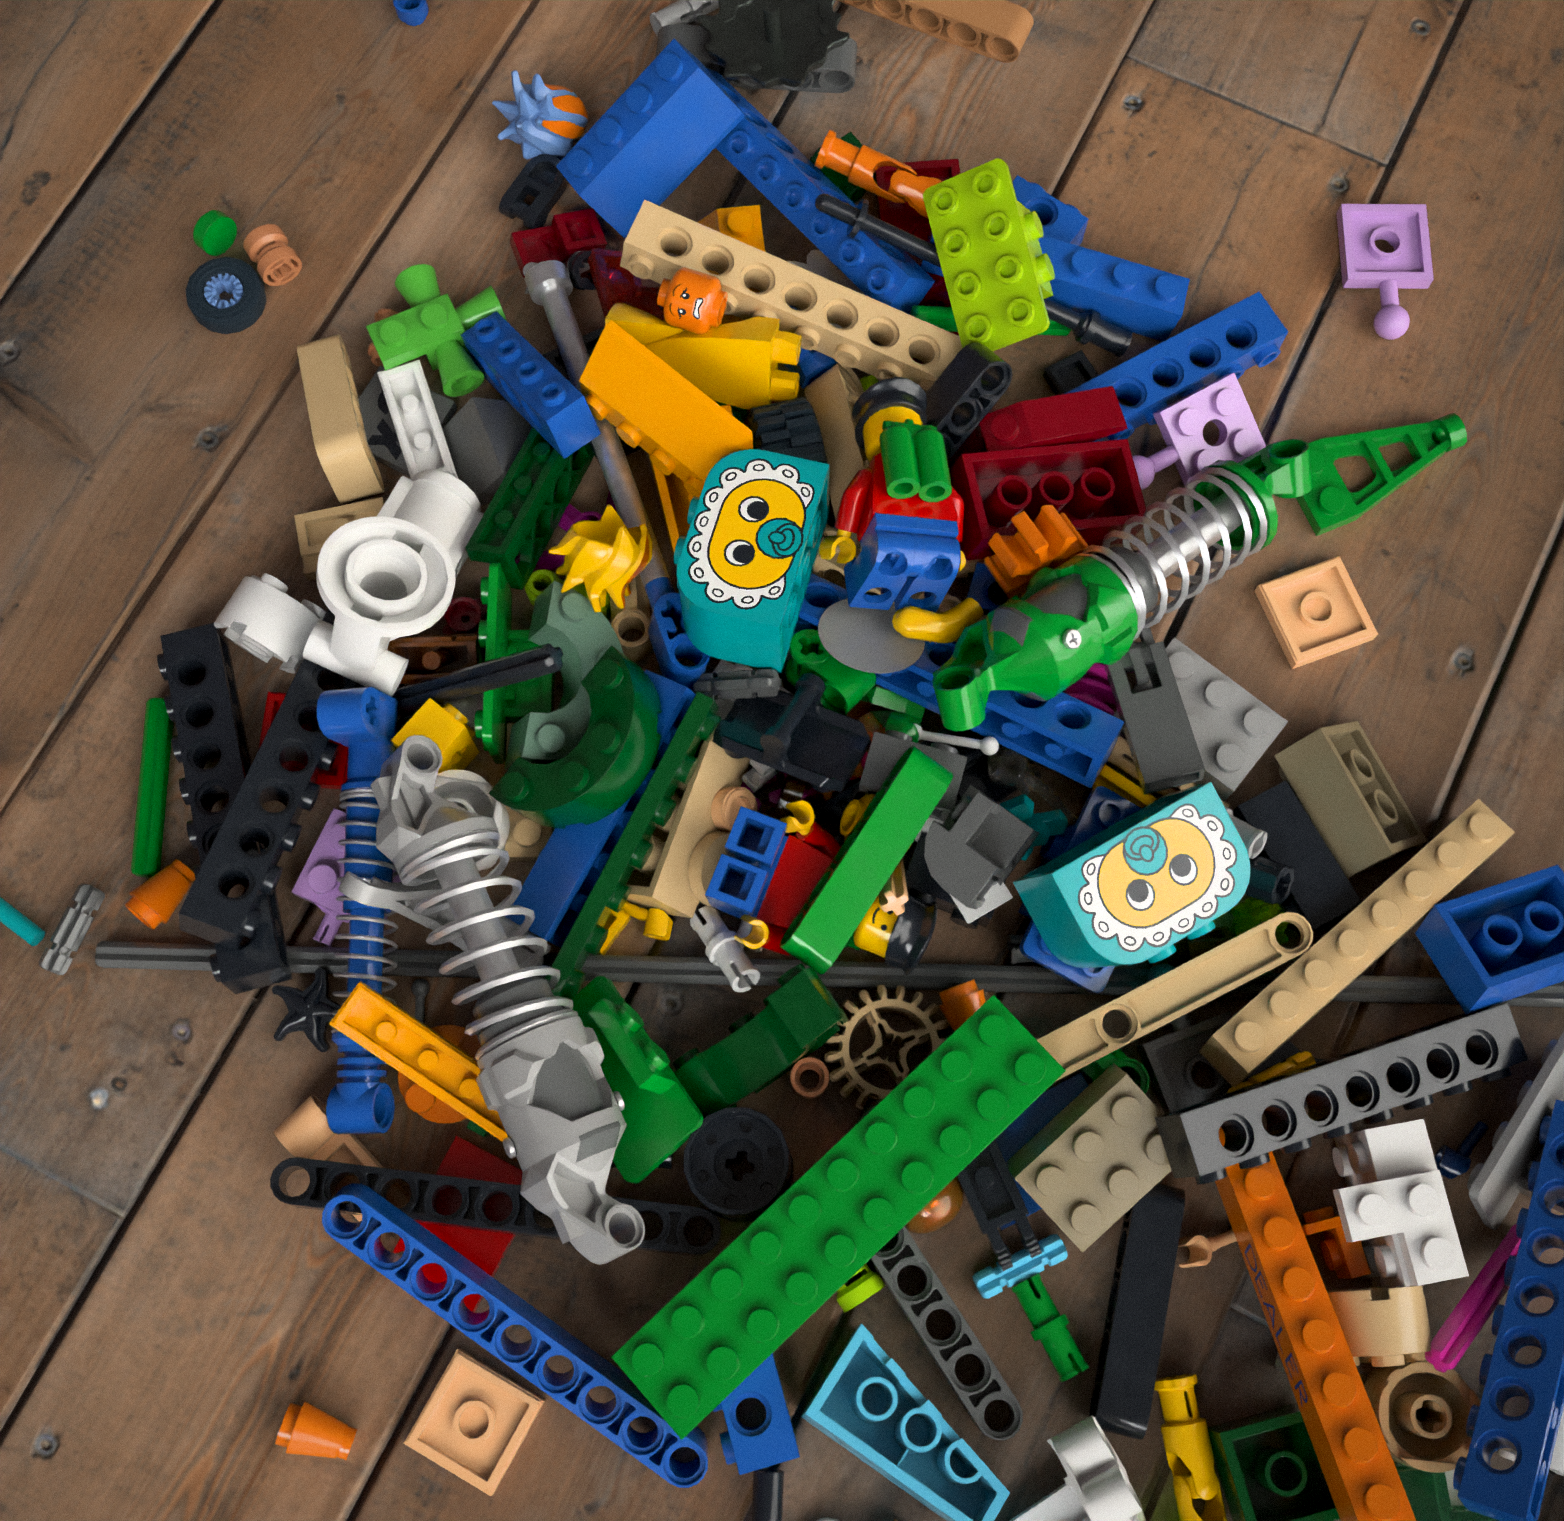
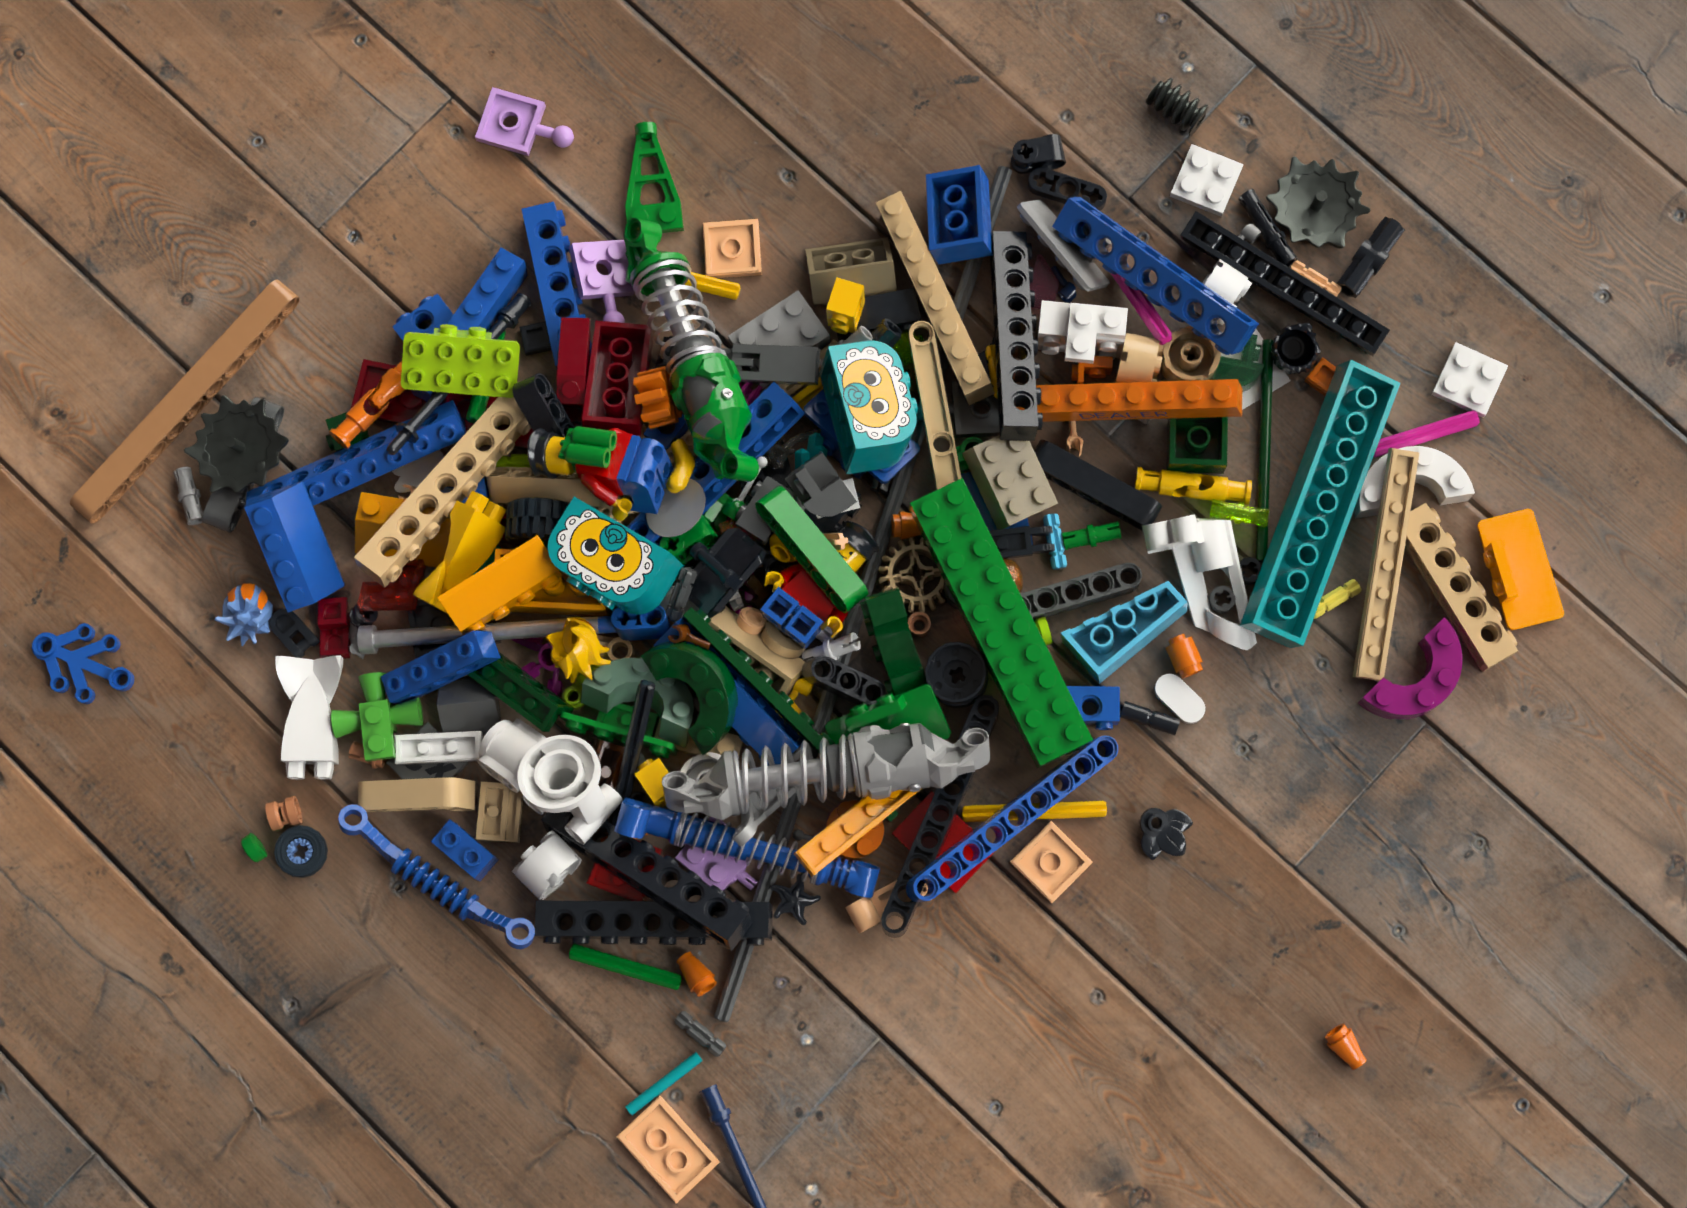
camera: 65 degrees left, 5 degrees up
(232, 443) = (400, 860): none -> blue piece
(267, 507) = (464, 850): none -> blue brick
(314, 1433) = (1031, 951): orange cone -> none
(383, 245) = (308, 728): none -> white hips
(569, 1427) = (1061, 810): none -> yellow axle
(668, 1004) = (831, 680): none -> black beam
(670, 704) = (685, 635): none -> reddish brown hand
(692, 300) = (433, 547): orange head -> none
(1247, 601) = (716, 286): none -> yellow axle
(1290, 795) = (845, 306): none -> yellow brick
(1453, 1116) = (1044, 282): none -> clear pink tile

